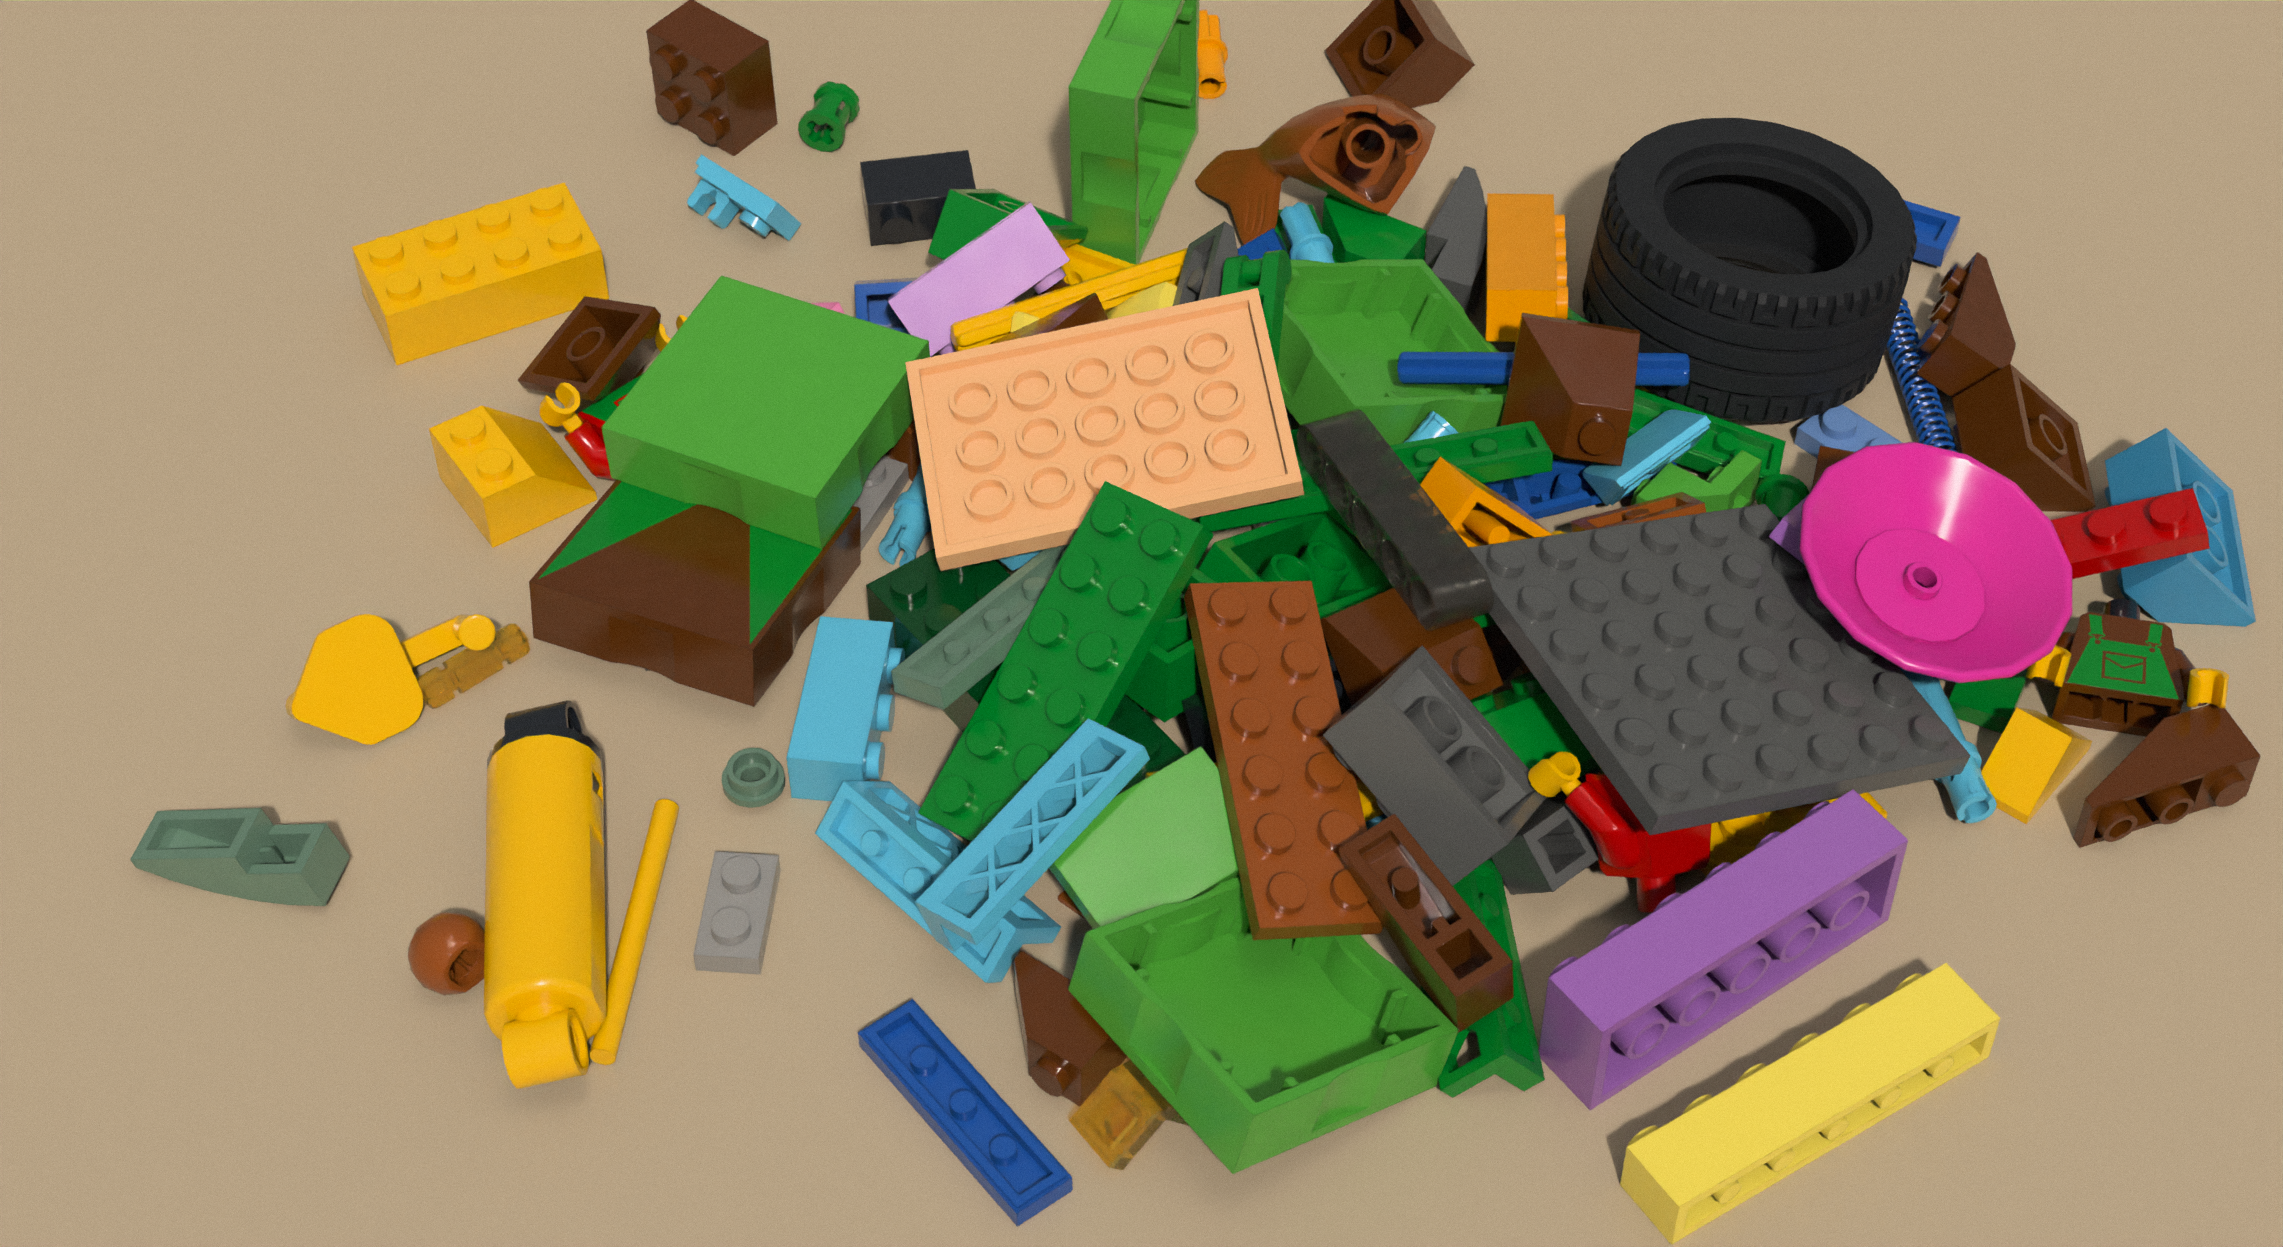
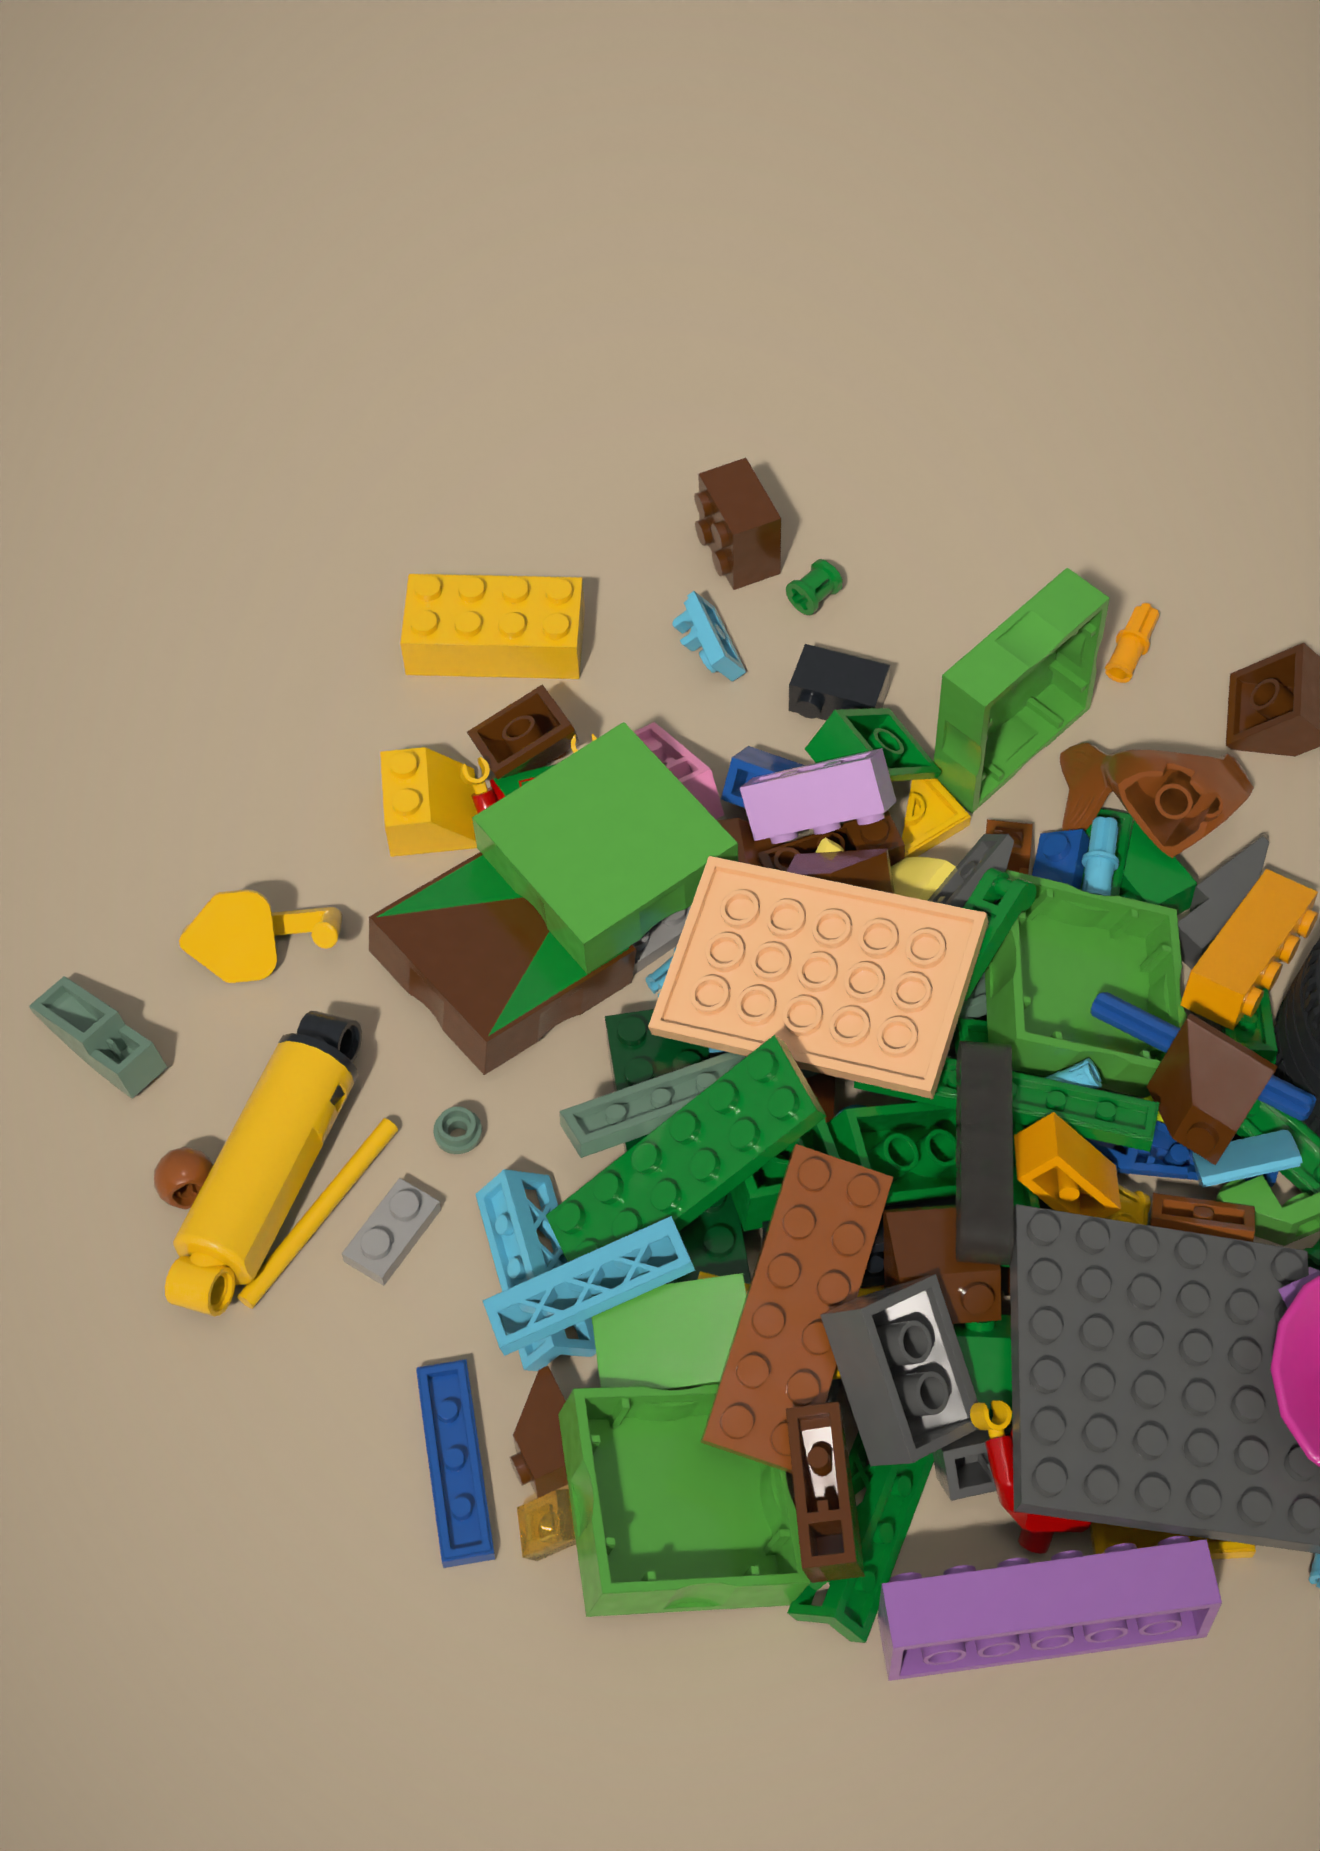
camera: 30 degrees right, 10 degrees up
(472, 666) = (292, 957): clear yellow axle -> none
(843, 707) = (526, 1123): medium azure brick -> none
(1110, 288) = (898, 841): yellow axle -> none
(1807, 1101) = (1045, 1760): light yellow brick -> none

